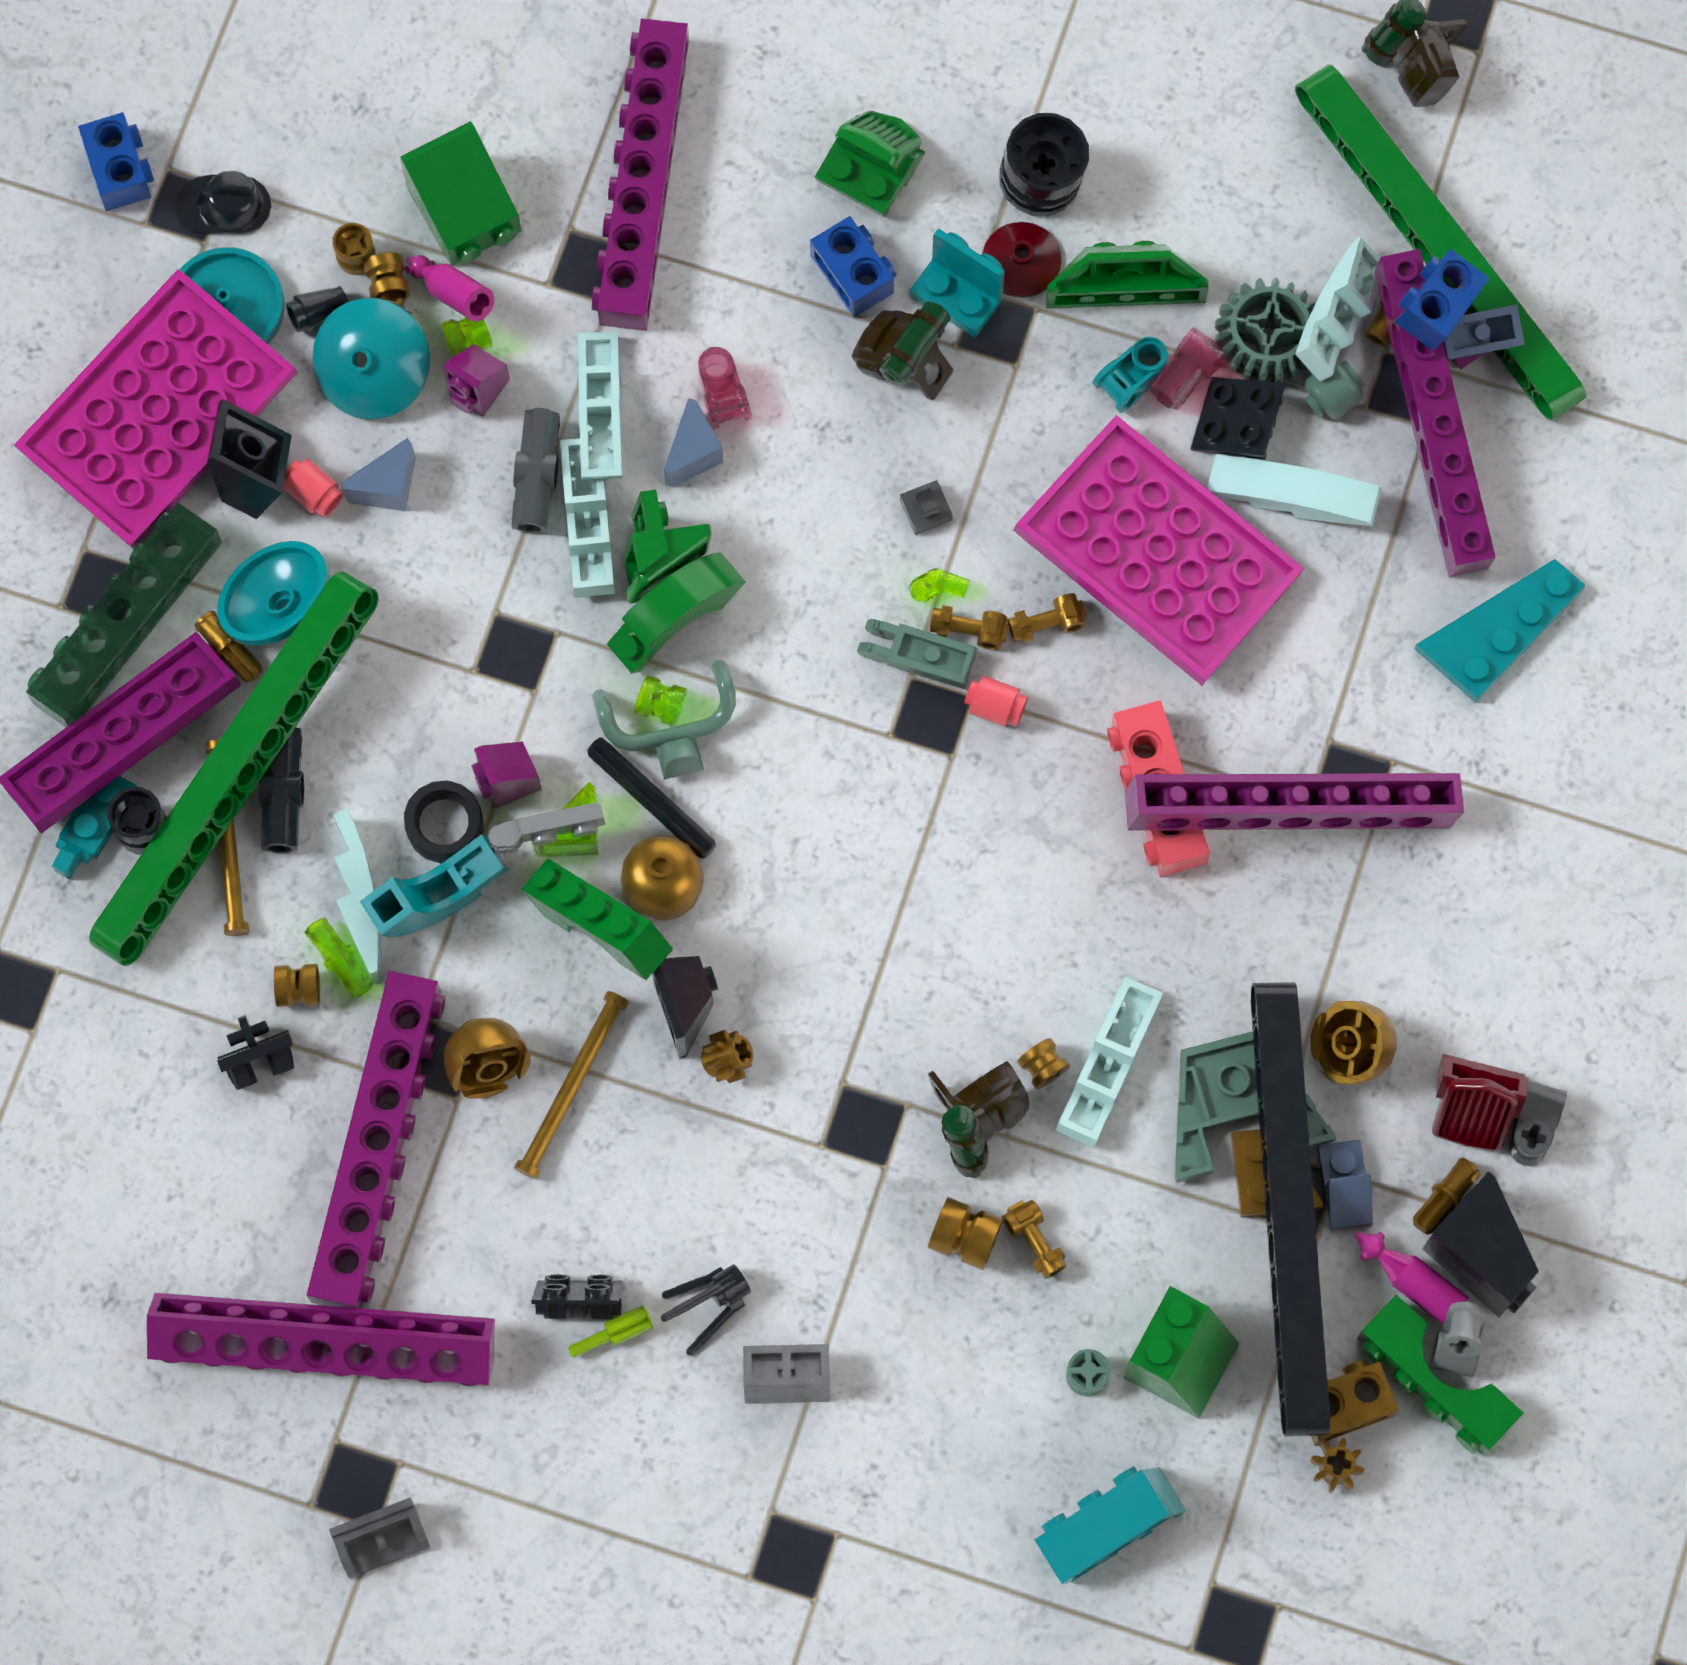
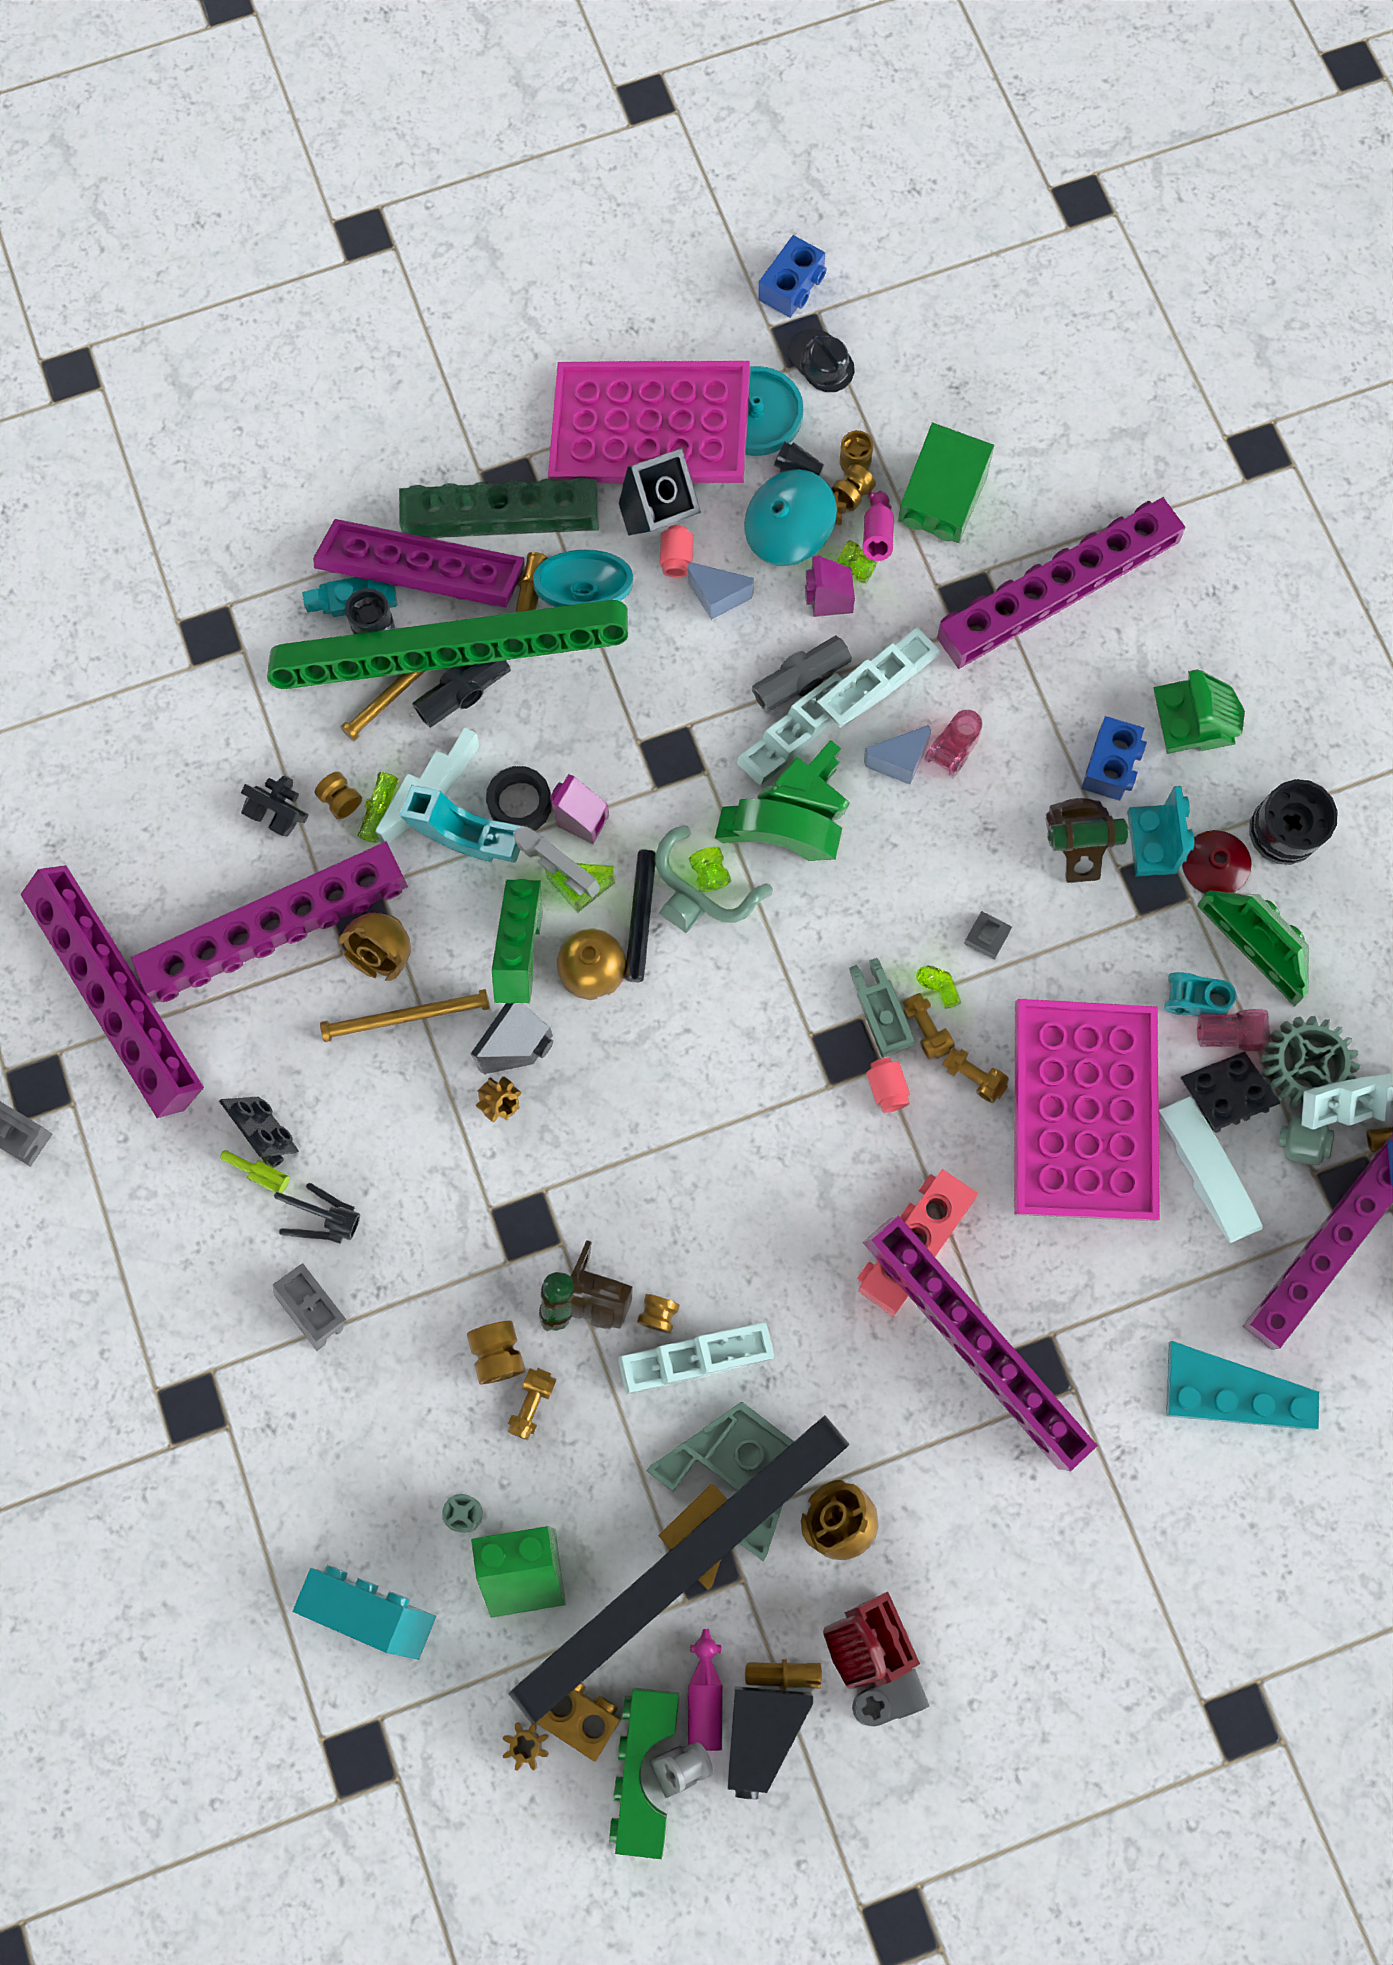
camera: 55 degrees right, 0 degrees up
(1345, 1185) = (737, 1593): sand blue slope -> none

